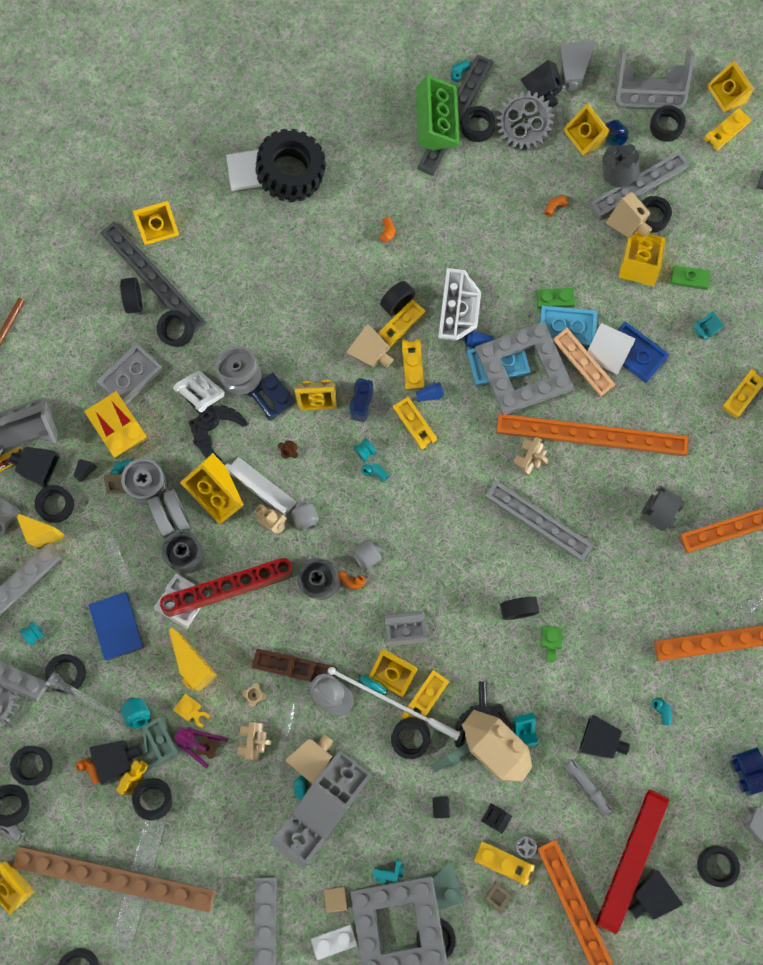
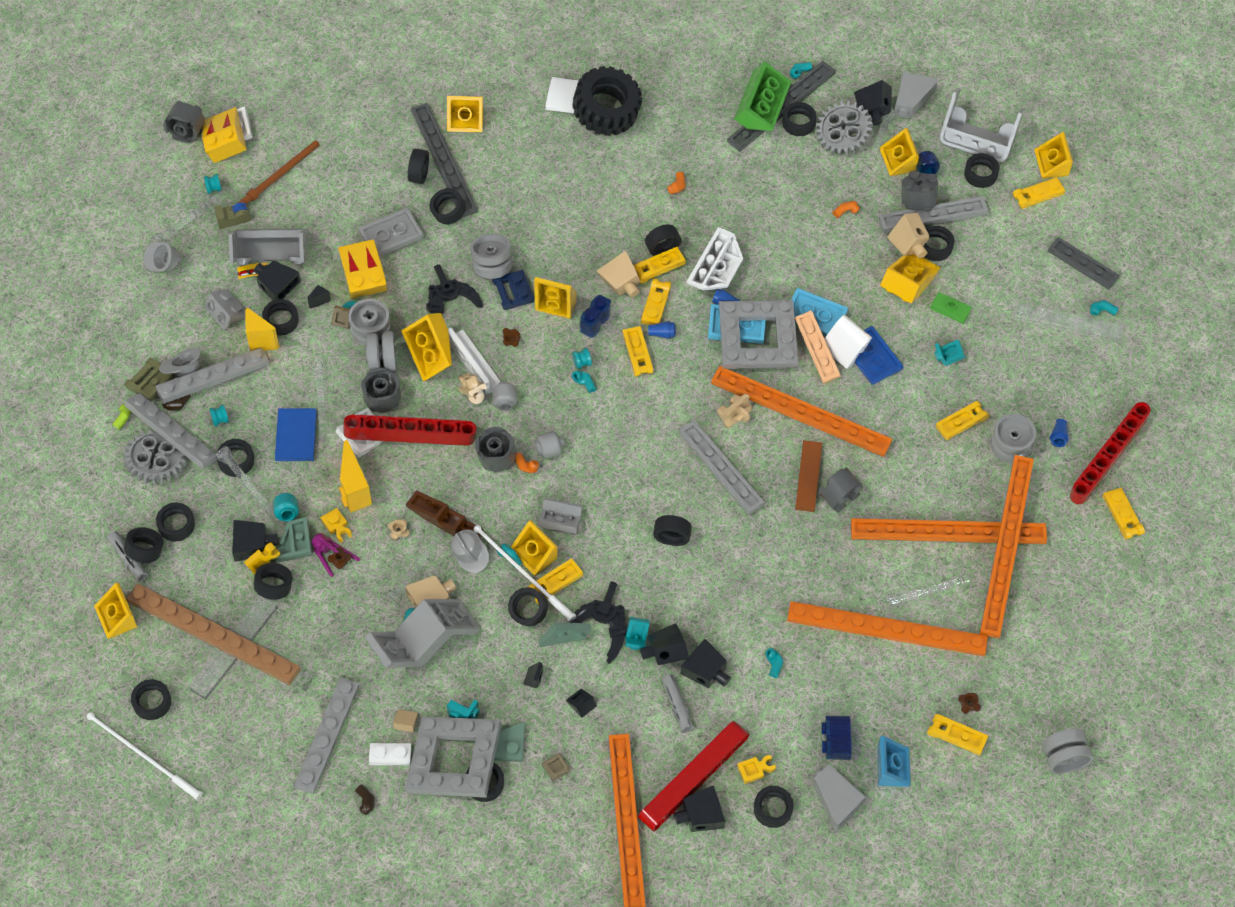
camera: 15 degrees right, 15 degrees down
(88, 765) = (227, 540): orange arm -> none
(203, 387) = (452, 259): white plate -> none
(255, 741) = (384, 565): tan hips -> none
(497, 747) = (606, 637): tan wedge -> none
(503, 863) = (572, 740): yellow plate -> none
(526, 850) = (598, 727): light grey wheel -> none
(551, 639) = (692, 571): bright green plate -> none
(555, 297) = (815, 286): bright green plate -> none
(558, 734) = (666, 646): none -> black torso
(623, 501) = (808, 476): none -> dark orange tile
(684, 833) = (753, 770): none -> yellow plate

